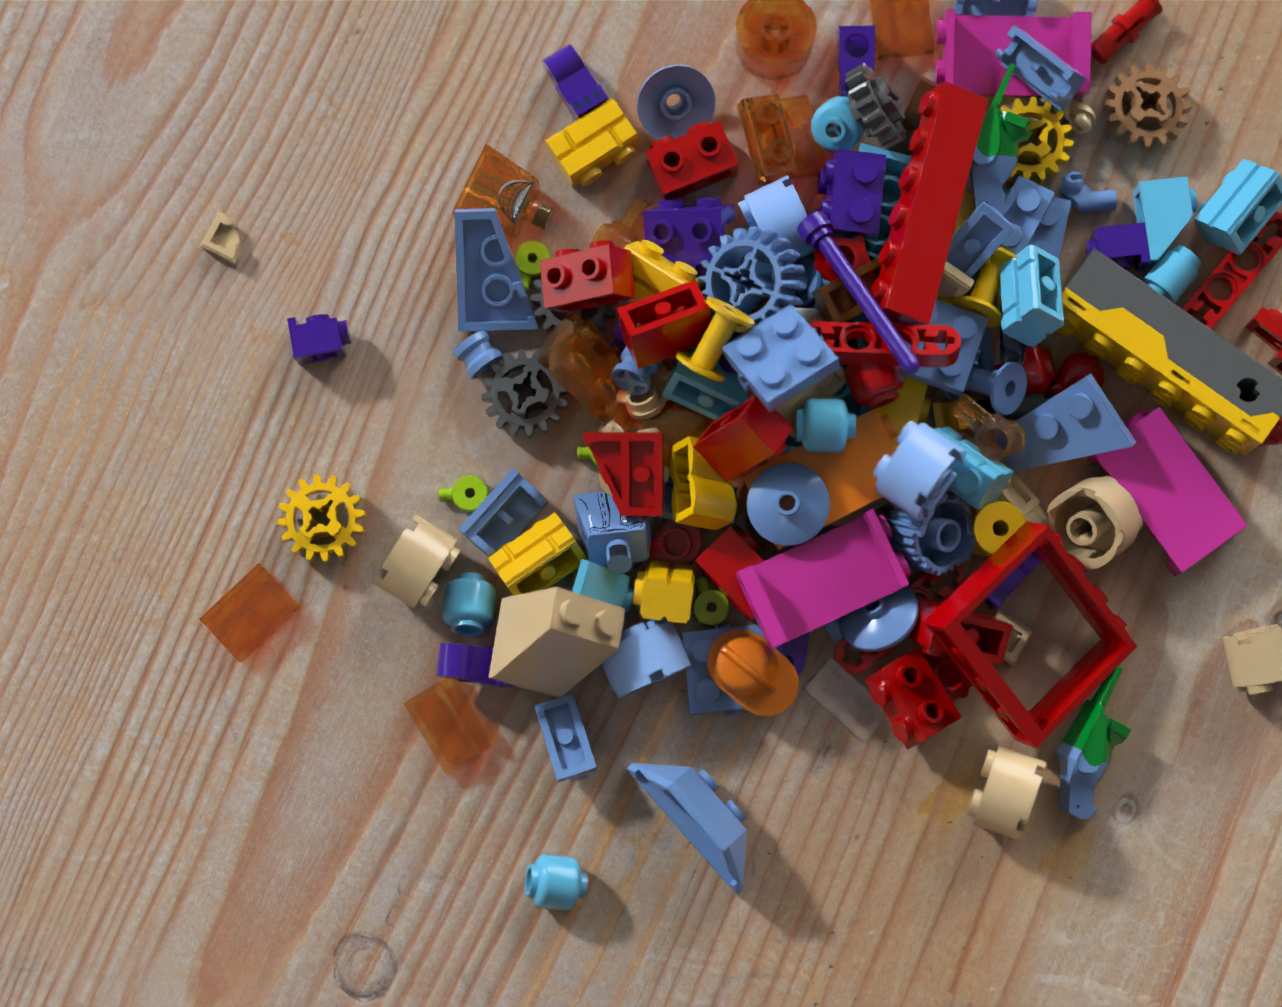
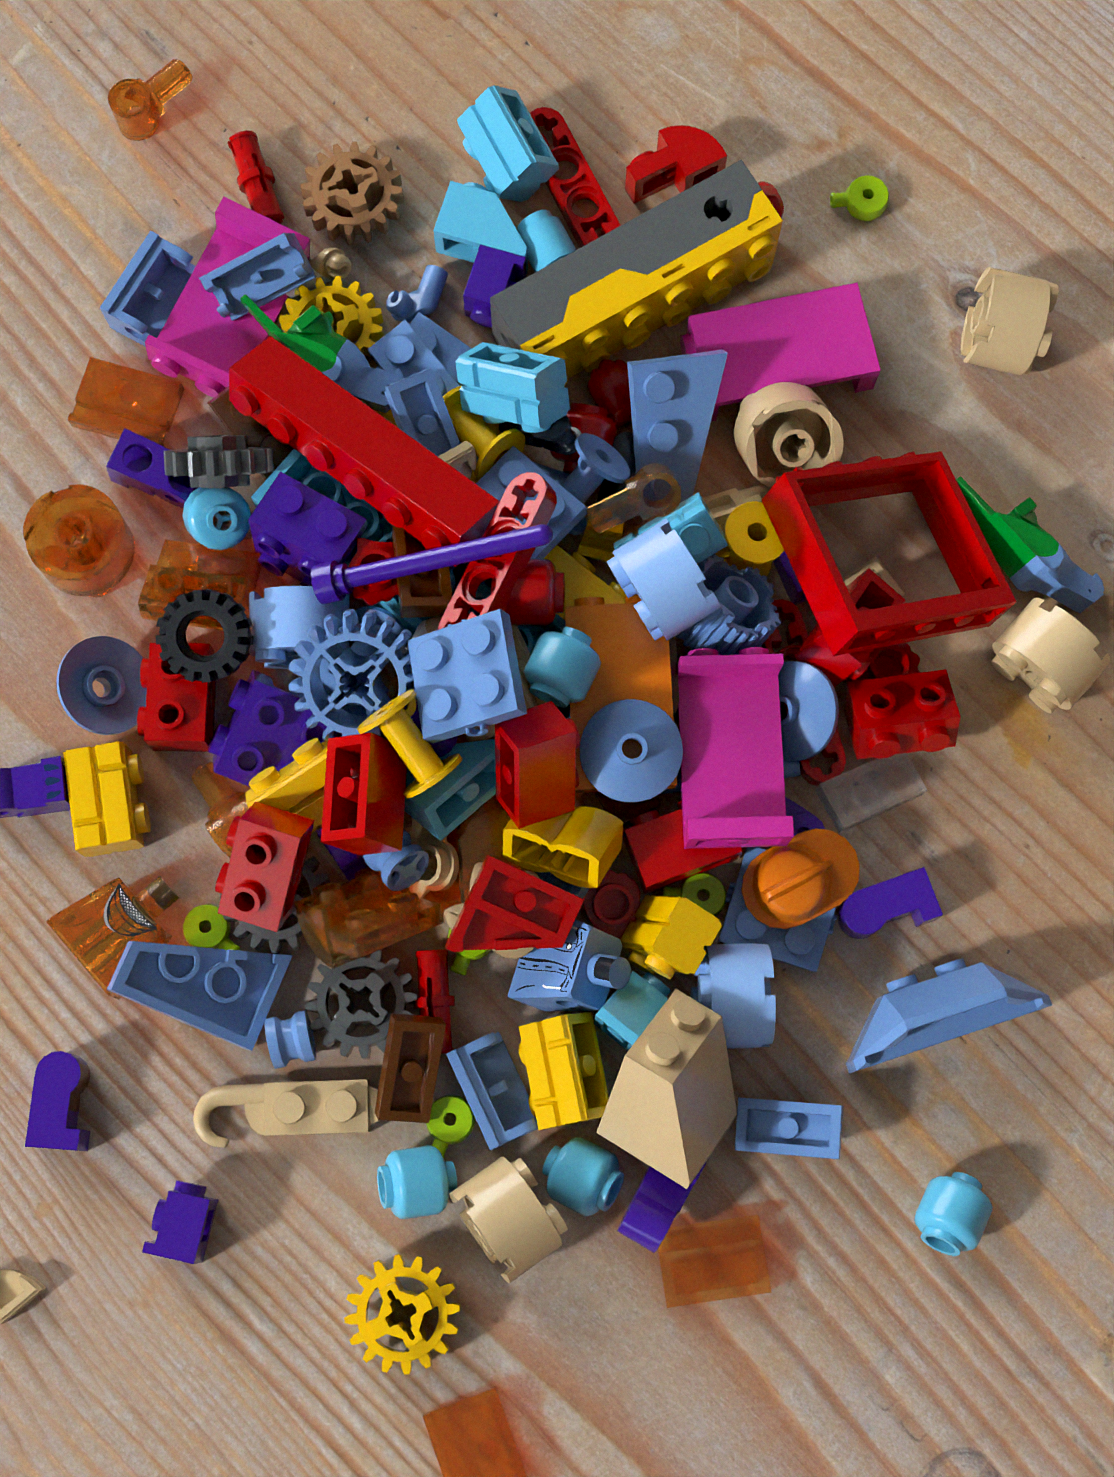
camera: 70 degrees left, 5 degrees down
(363, 212) = (56, 1103): none -> dark purple leg
(415, 487) = (416, 1182): none -> medium azure head
(432, 382) = (292, 1108): none -> tan plate
(492, 447) = (410, 1068): none -> reddish brown plate
(547, 445) = (434, 990): none -> red pin
(714, 153) = (175, 646): none -> black tyre
(753, 733) = (887, 901): none -> dark purple leg

